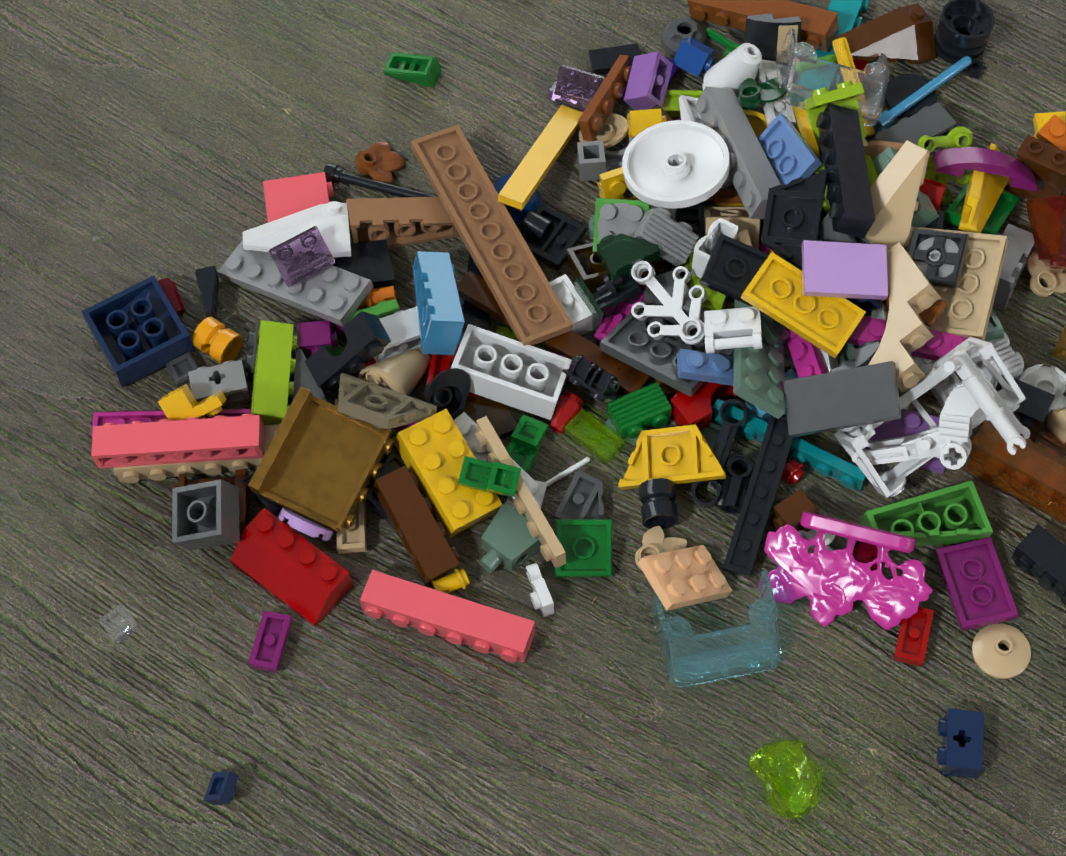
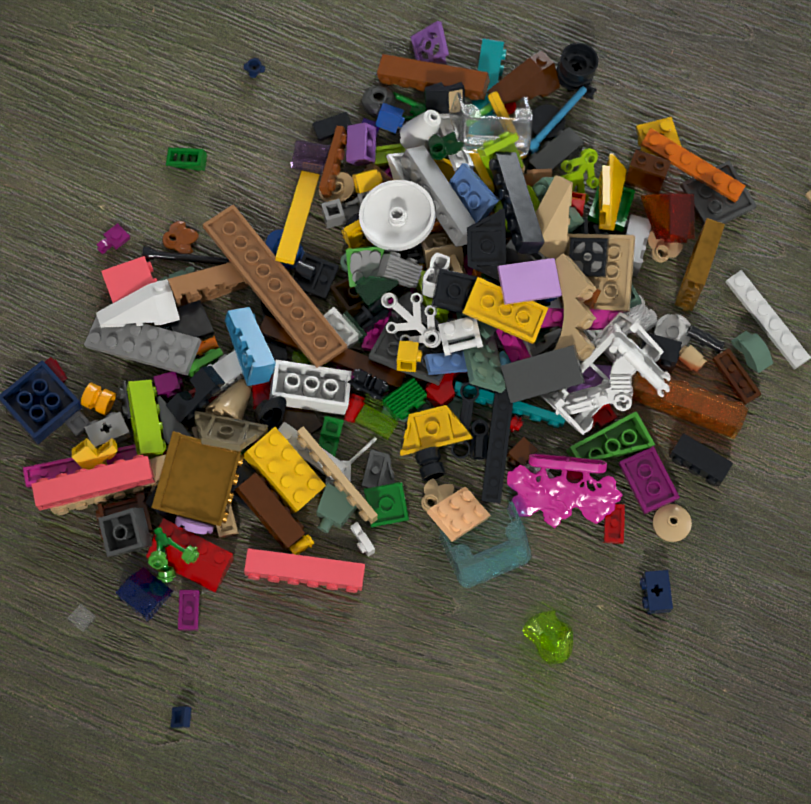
camera: 20 degrees left, 10 degrees up
(208, 287) = (80, 358): black slope -> none
(213, 607) = (144, 593): none -> clear blue slope
(242, 554) = (158, 558): none -> bright green plant
(291, 148) = (114, 238): none -> magenta plate
(301, 256) = (147, 329): clear purple bracket -> none
(489, 477) = (315, 470): green slope -> none
(654, 348) = (408, 356): none -> yellow brick
(920, 482) = (603, 416): none -> red plate
(955, 160) = (610, 171): magenta slope -> none

